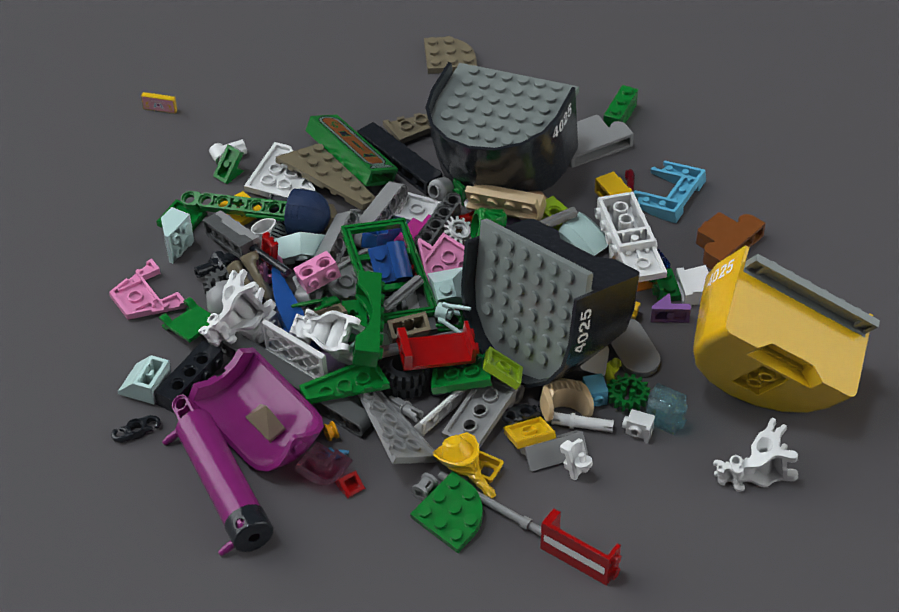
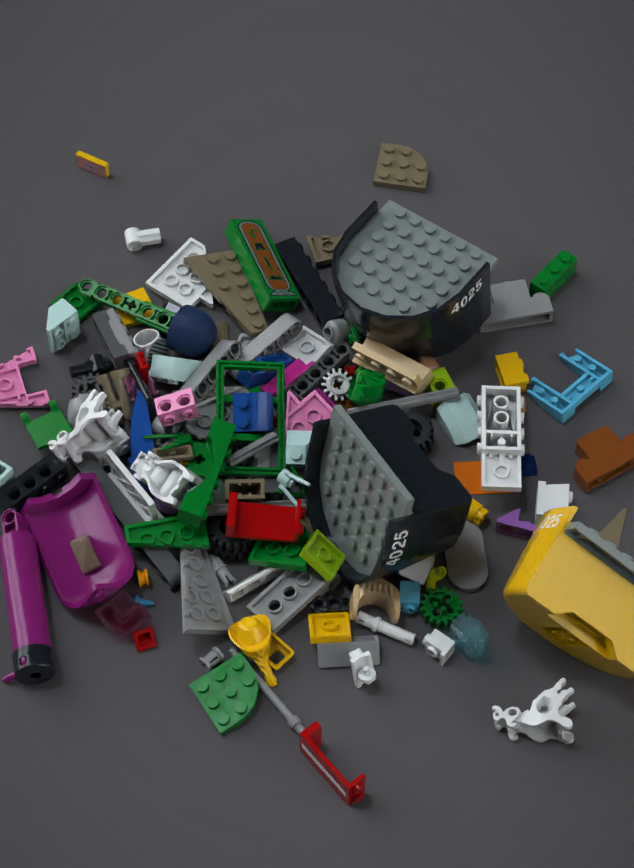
camera: 15 degrees right, 10 degrees up
(228, 164) = (138, 255): green slope -> none
(629, 177) = (534, 358): dark red piece -> none
(667, 285) = (526, 498): green bracket -> none

